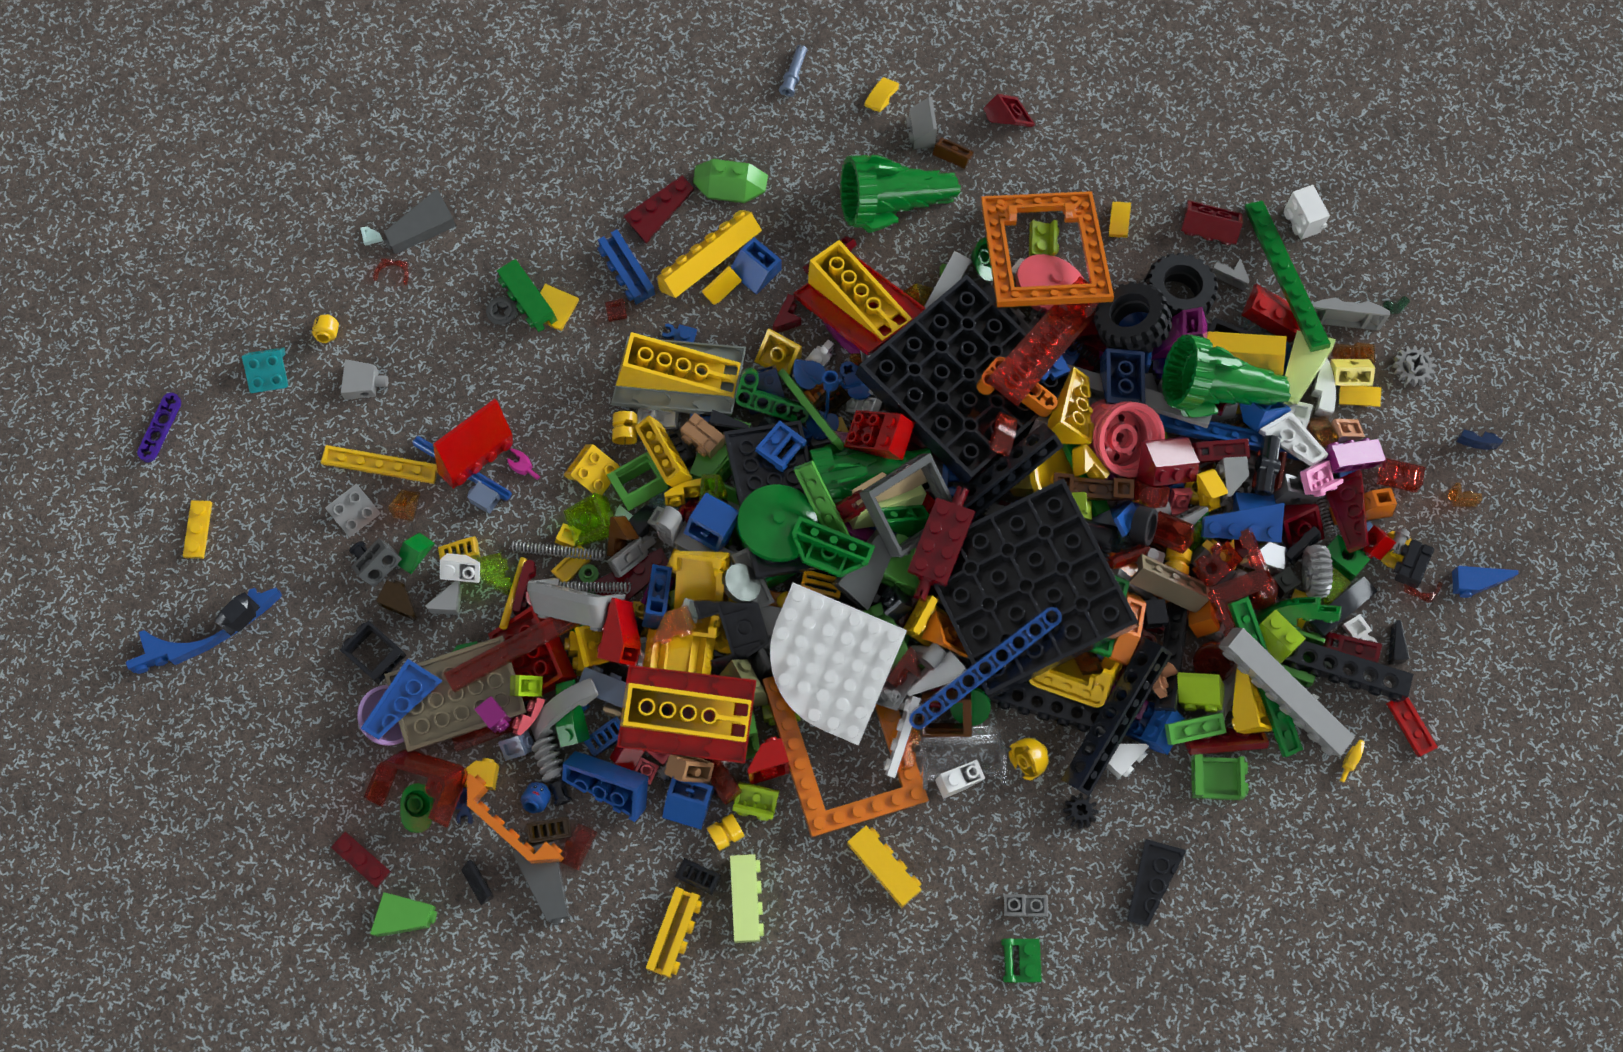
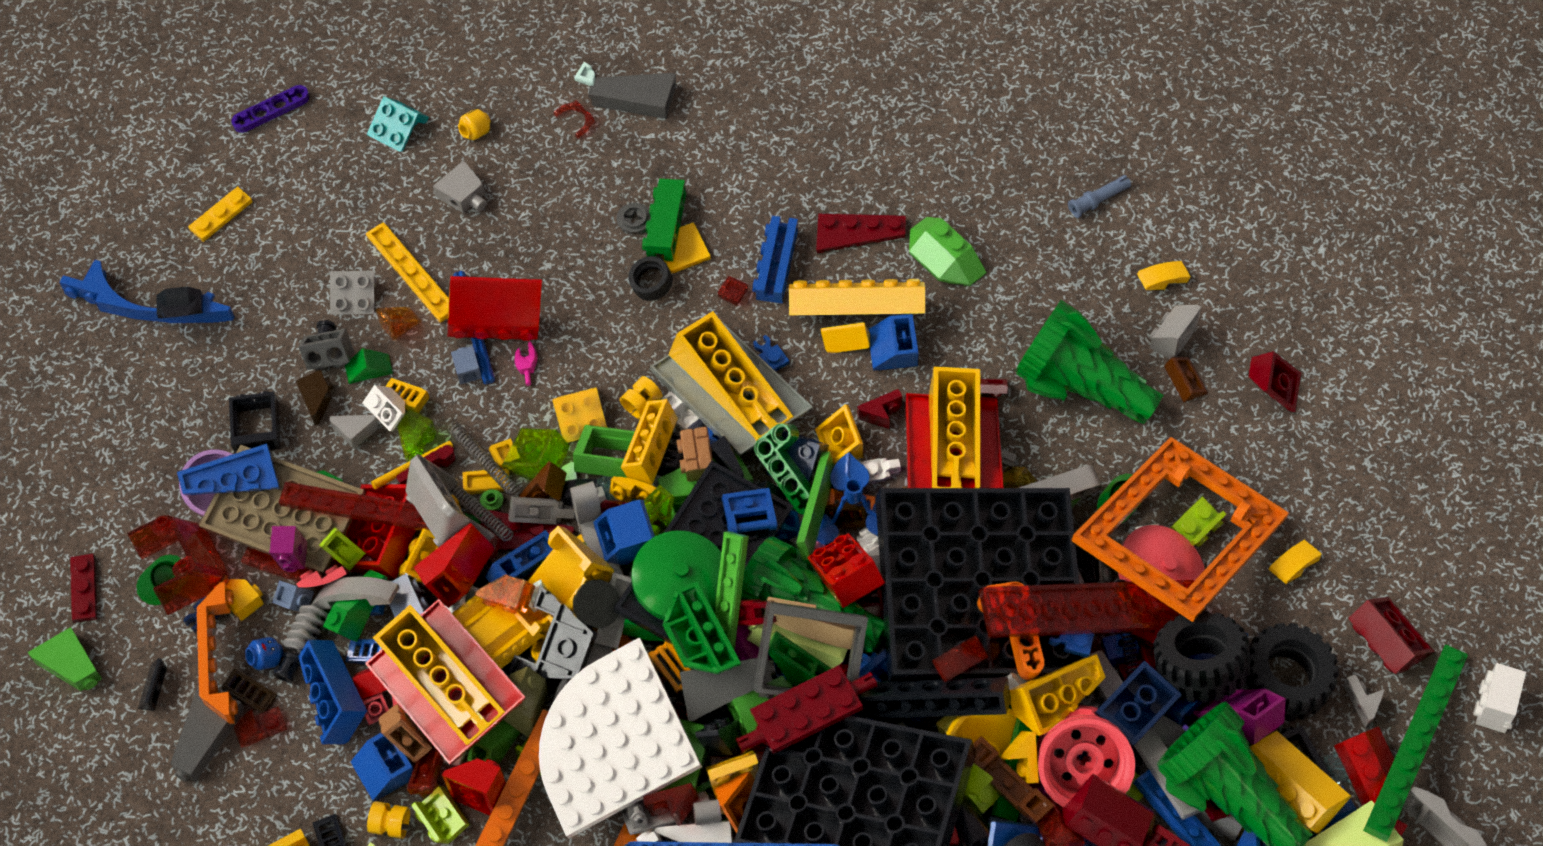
camera: 45 degrees right, 10 degrees down
(543, 333) = (640, 268): none -> black tyre

